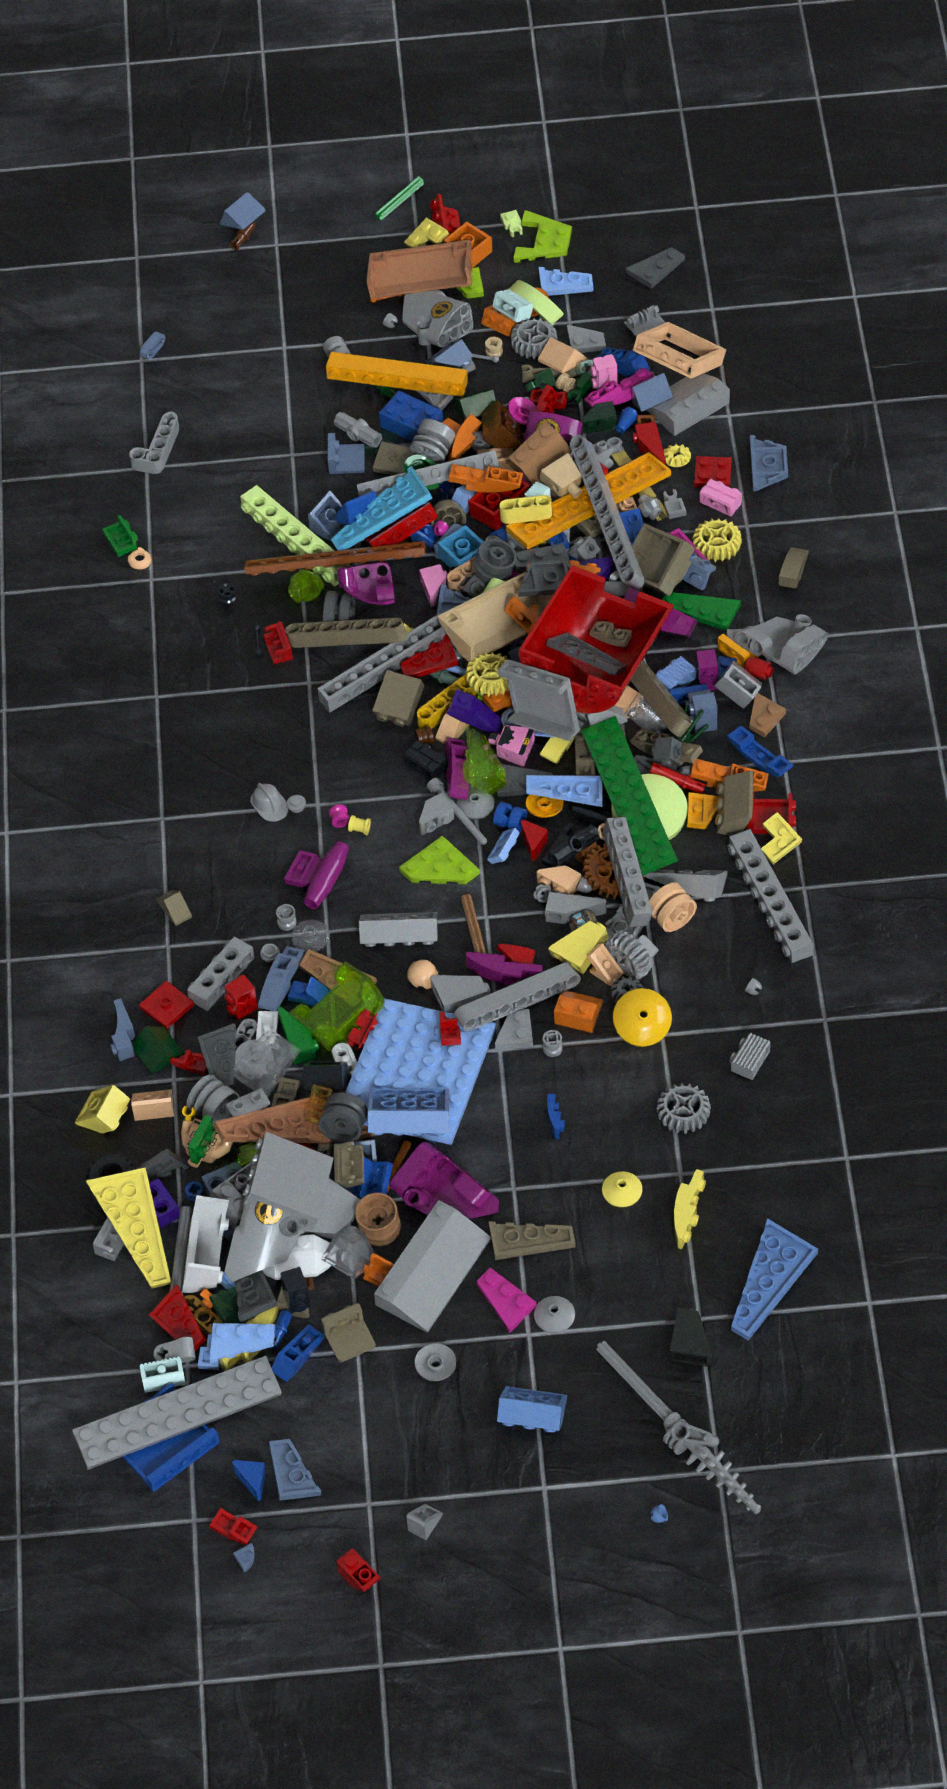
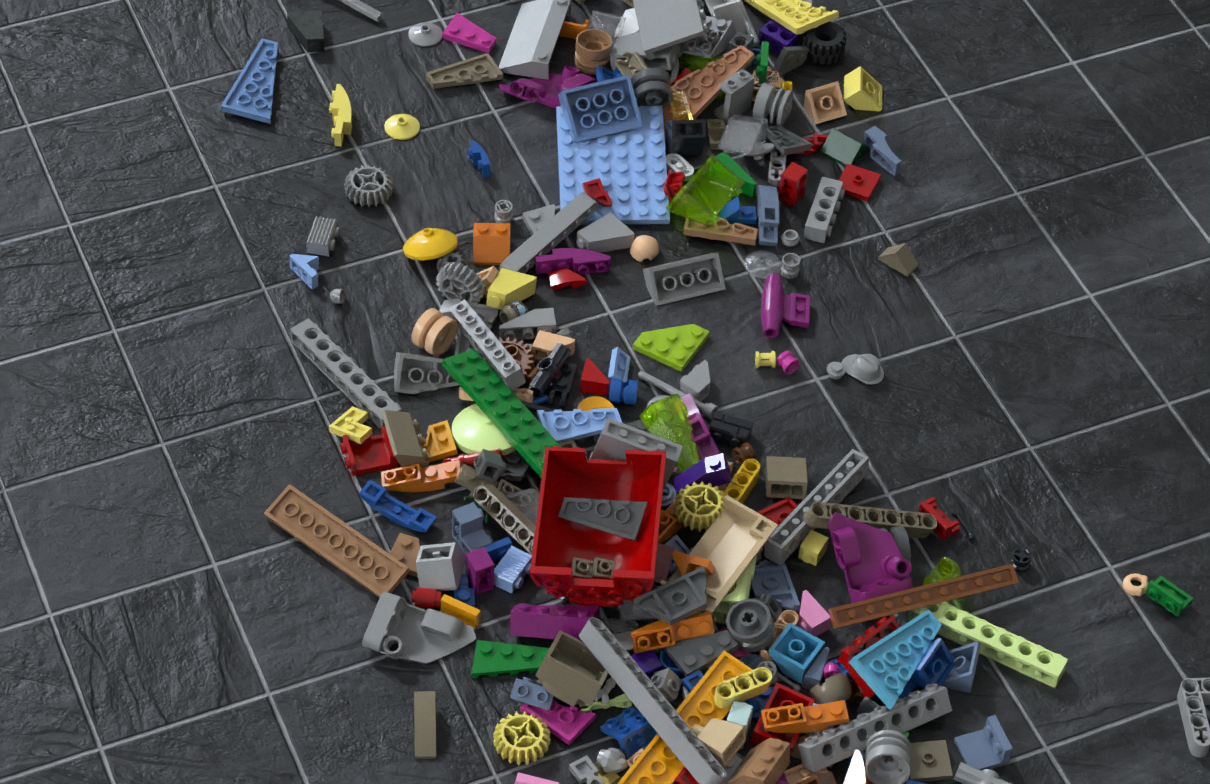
camera: 155 degrees right, 5 degrees down
(214, 1165) = (741, 39): none -> dark grey brick
(266, 1020) = (759, 174): white plate -> none
(472, 923) = (617, 297): medium nougat axle -> none
(777, 1022) = (305, 267): none -> light blue slope
(825, 732) = (336, 541): none -> medium nougat plate

